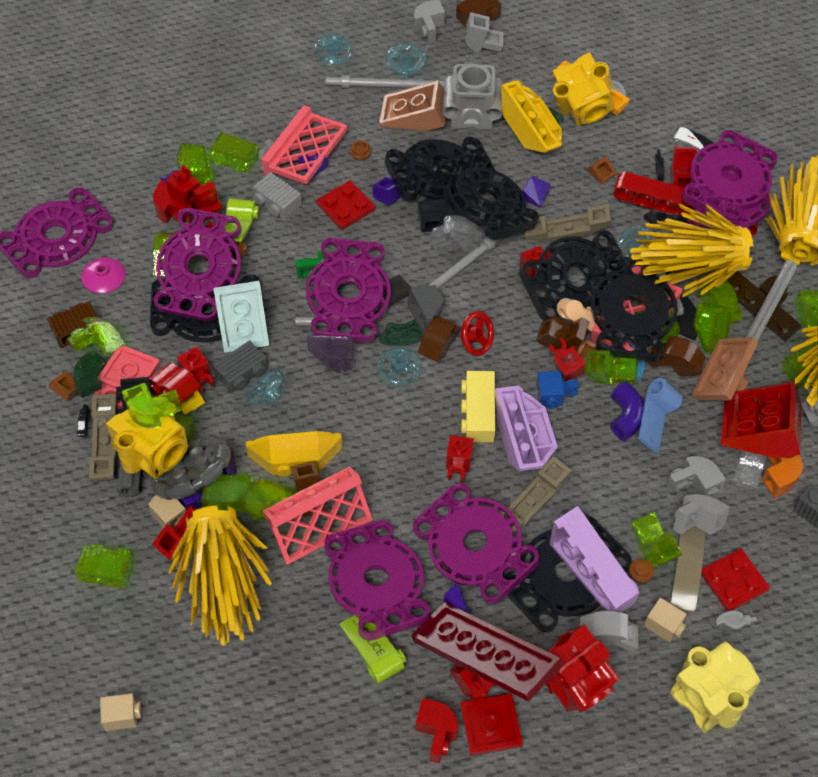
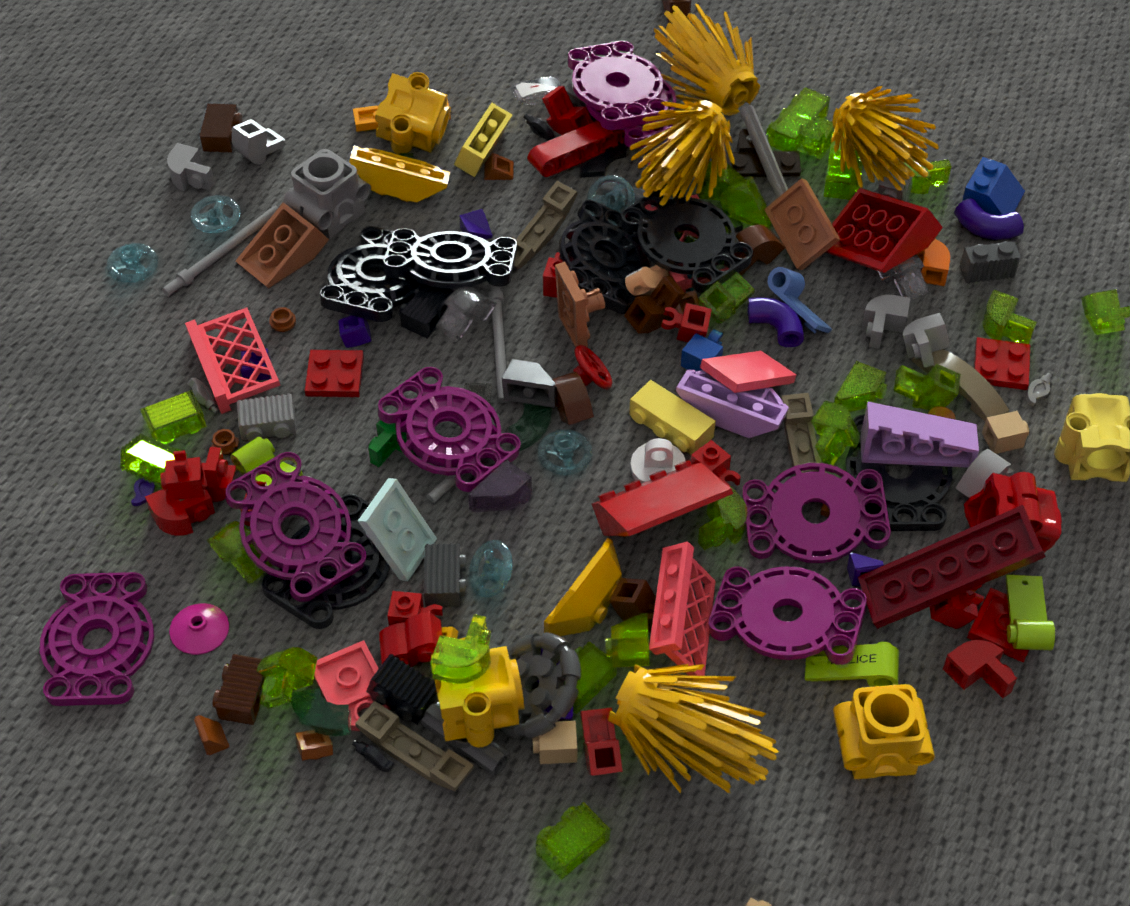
camera: 50 degrees left, 5 degrees down
(32, 331) = (211, 735): none -> dark orange slope
(242, 185) = (222, 436): none -> dark orange plate
(325, 713) = (883, 732): none -> yellow piece
(393, 440) = (658, 499): none -> red slope
(429, 491) = (727, 519): none -> clear neon green brick
(435, 425) = (654, 457): none -> white tile
(506, 732) = (1028, 614): none -> lime door
(507, 286) = (575, 304): none -> nougat plate
(545, 513) = (835, 431): none -> clear neon green brick
(557, 422) = (747, 371): none -> coral tile
(610, 142) = (483, 139): none -> light yellow brick
(613, 501) = (861, 386): none -> clear neon green slope
(774, 552) = (1002, 321): none -> clear neon green brick

